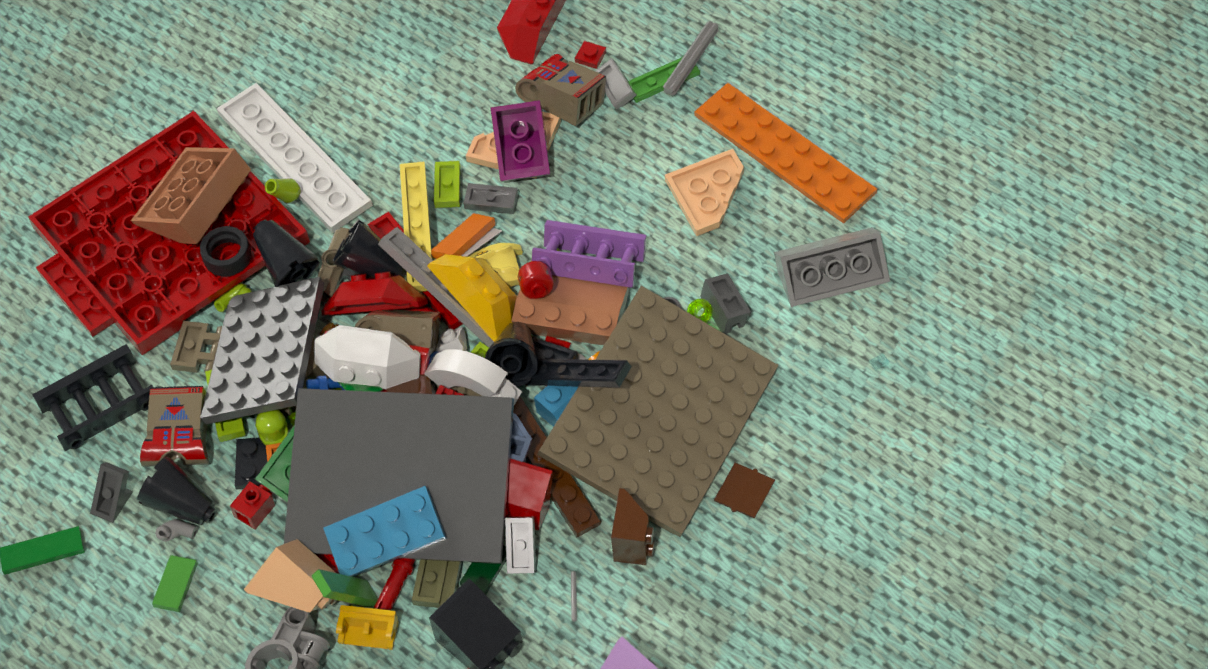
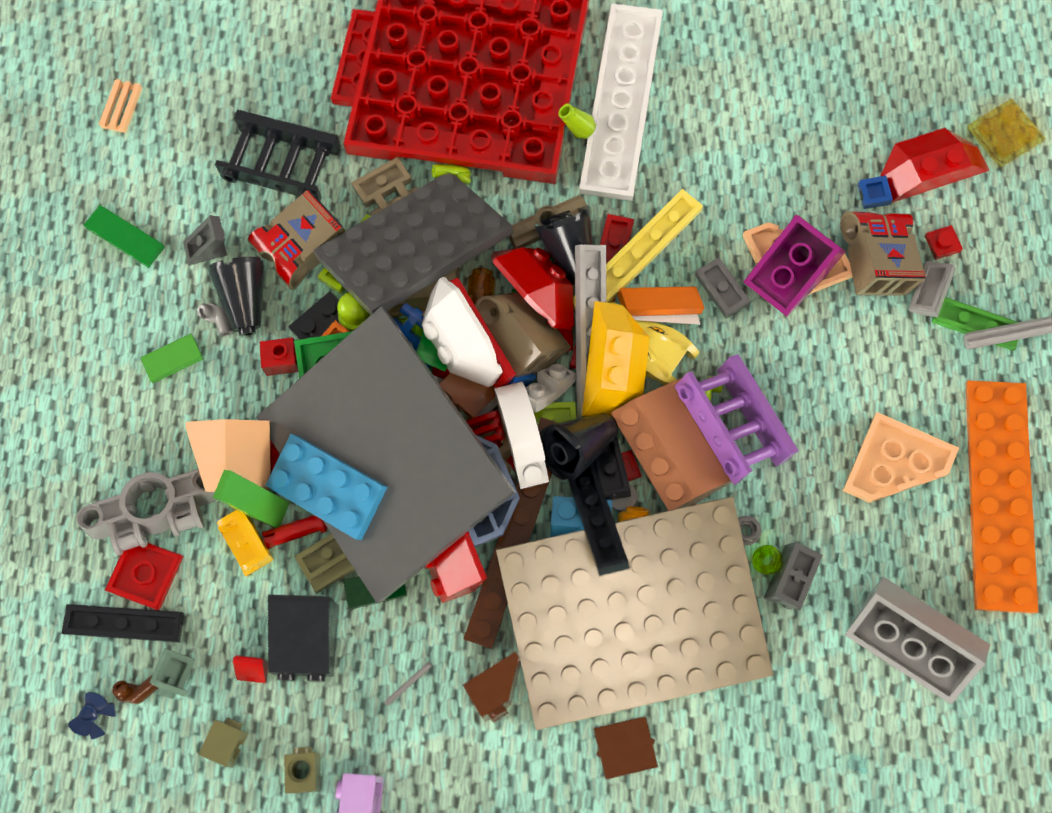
camera: 50 degrees right, 15 degrees up
(193, 193) = (508, 60): nougat slope -> none
(230, 266) = (477, 113): black tyre -> none
(283, 254) = (511, 177): black cone -> none
(447, 184) = (704, 241): lime plate -> none
(517, 64) = (875, 192): none -> blue plate
(520, 545) = (411, 603): plate -> none
(535, 278) = (662, 400): red head -> none

